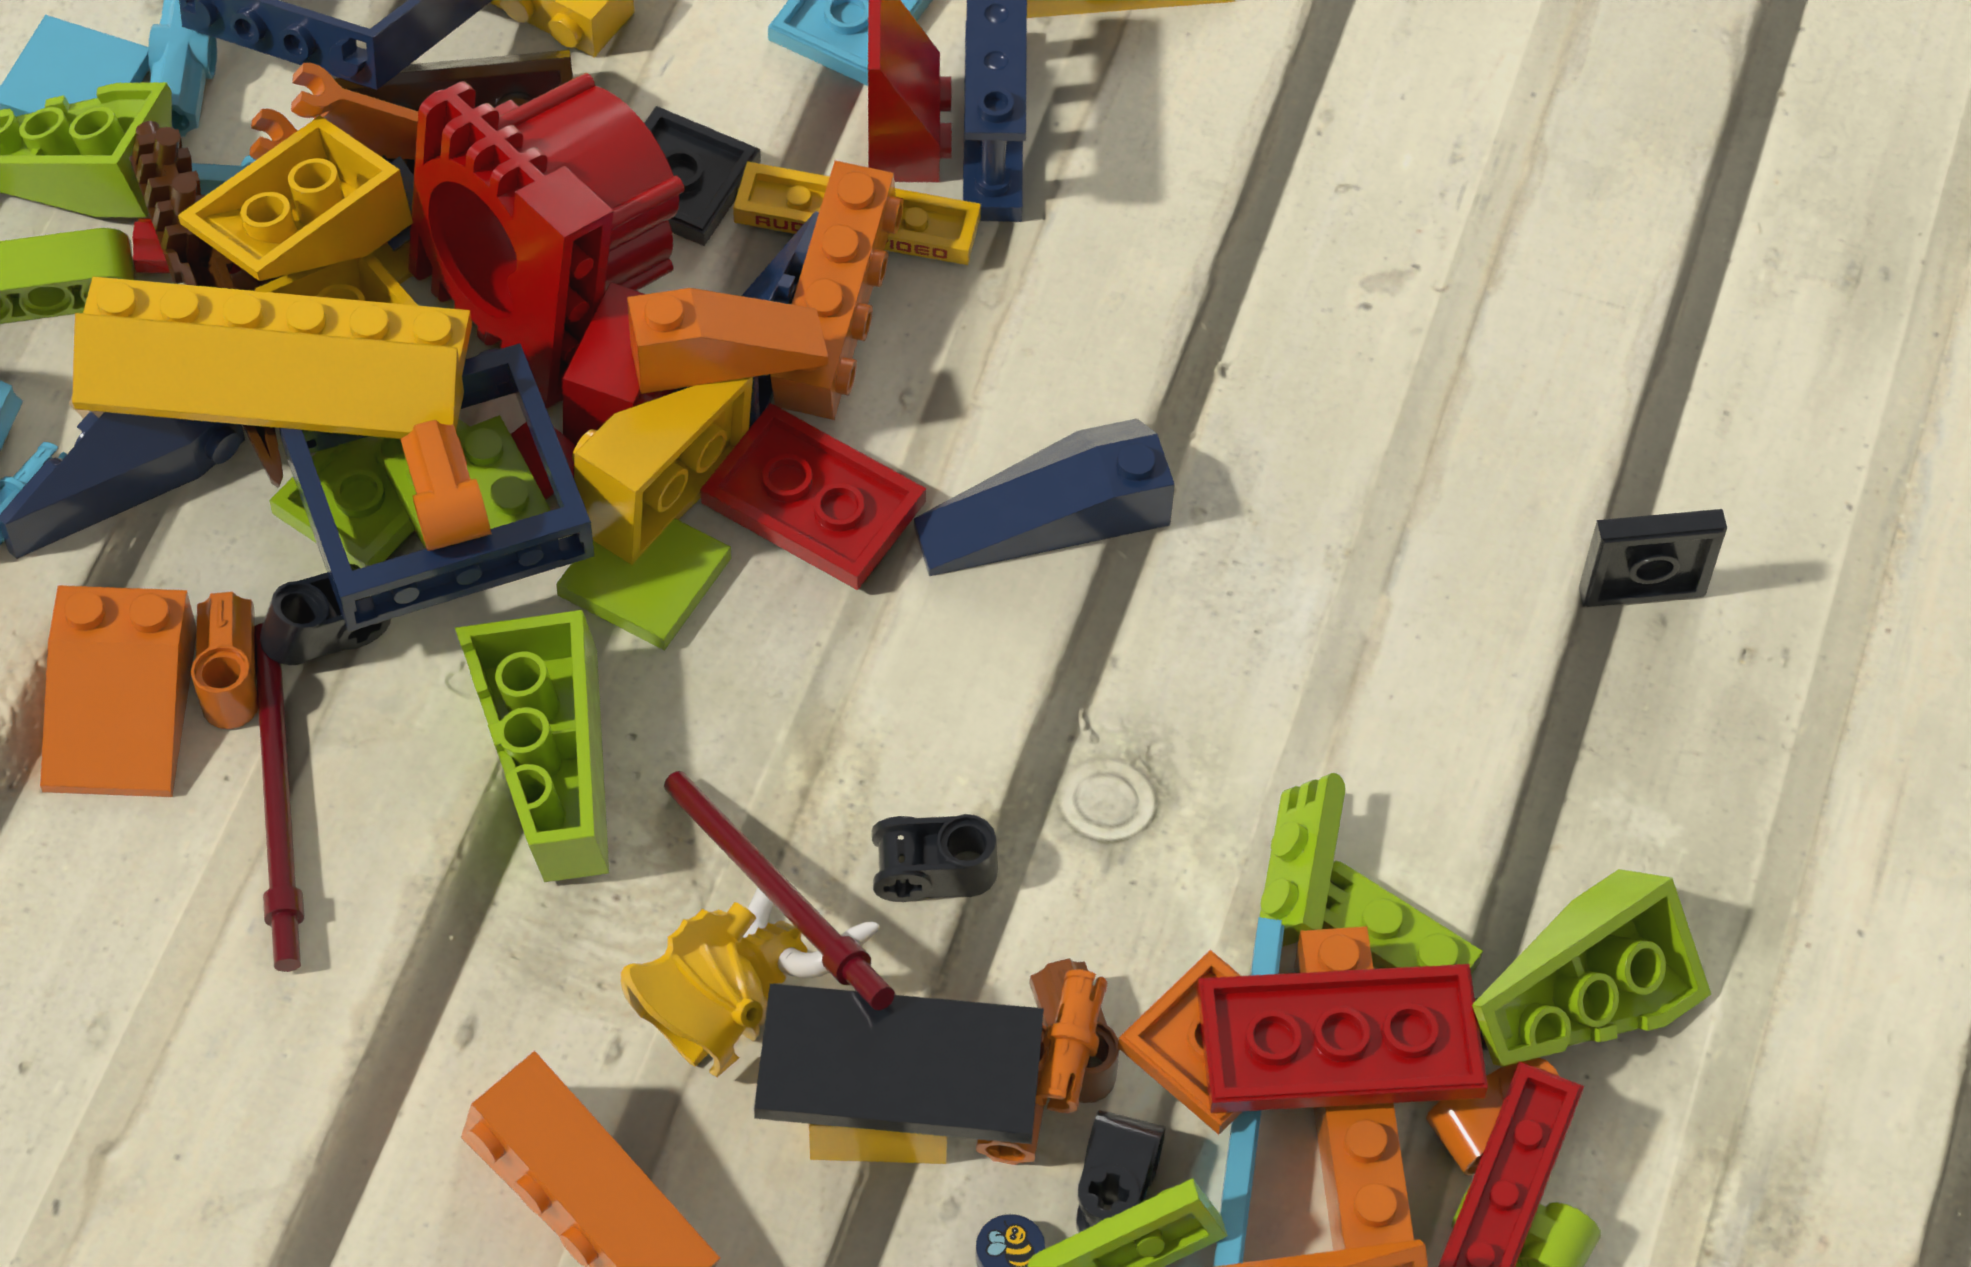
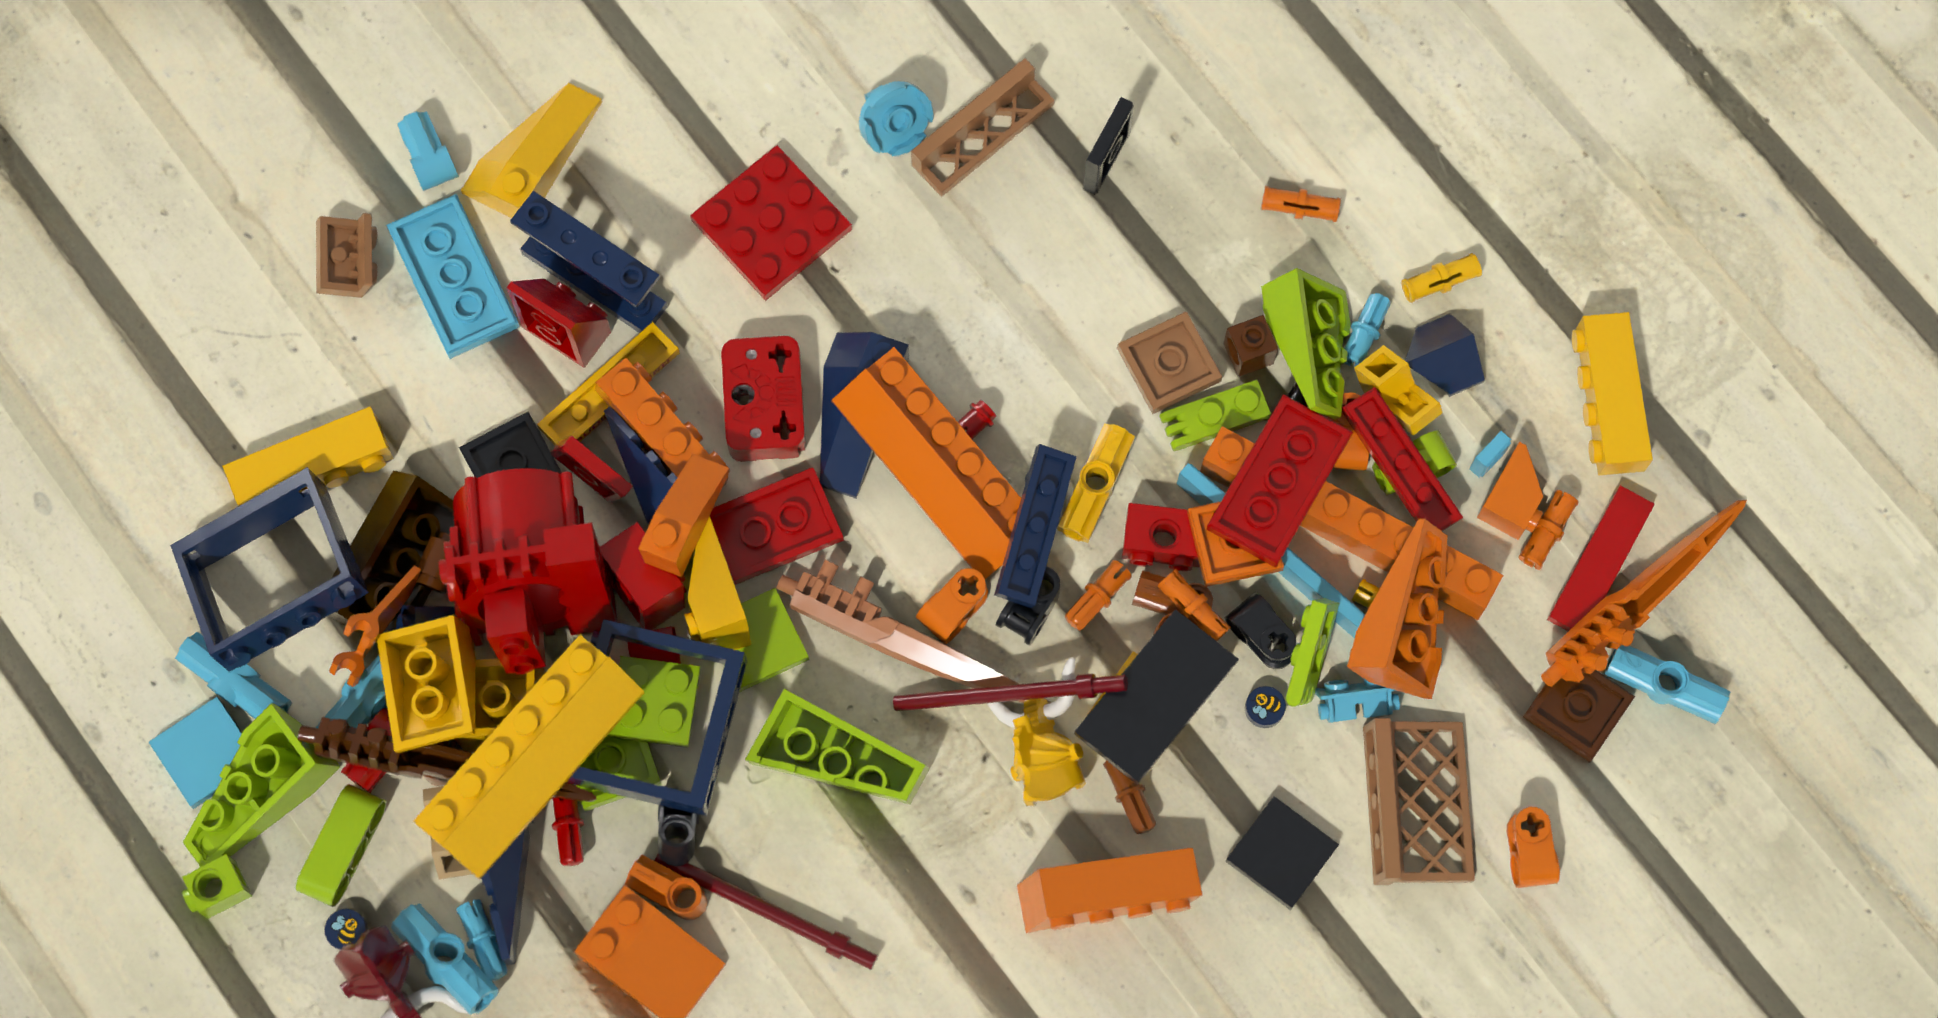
camera: 55 degrees left, 15 degrees up
(236, 502) = (568, 831): none -> red axle
(431, 246) = (514, 631): none -> red brick
(445, 497) = (690, 718): orange piece -> none
(721, 227) = (591, 469): none -> red tile
(750, 1145) = (1132, 799): none -> dark orange axle
(758, 672) = (862, 621): none -> nougat piece
(859, 762) = (949, 610): none -> orange piece
(976, 382) = (775, 398): none -> red axle
(1008, 933) = (1097, 596): none -> orange axle
(1036, 774) = (1035, 525): none -> dark blue piece
(1039, 621) = (933, 459): none -> orange slope
(1134, 641) = (977, 418): none -> red pin
(1141, 930) = (1146, 521): none -> red brick
(1206, 827) = (1088, 503): none -> yellow piece
(1225, 262) = (771, 222): none -> red plate
(1303, 855) = (1152, 428): lime hinge -> none
(1416, 826) = (1169, 362): none -> medium nougat plate
(1476, 298) = (895, 117): none -> medium azure tile
(1519, 905) = (1250, 345): none -> reddish brown brick
(1558, 400) = (973, 117): none -> medium nougat fence
(1610, 1131) = (1397, 387): none -> yellow brick
(1670, 1050) = (1366, 328): none -> medium azure axle
(1717, 1177) = (1446, 355): none -> dark blue slope
(1786, 858) = (1300, 204): none -> orange pin
(1877, 1131) = (1441, 277): none -> yellow pin

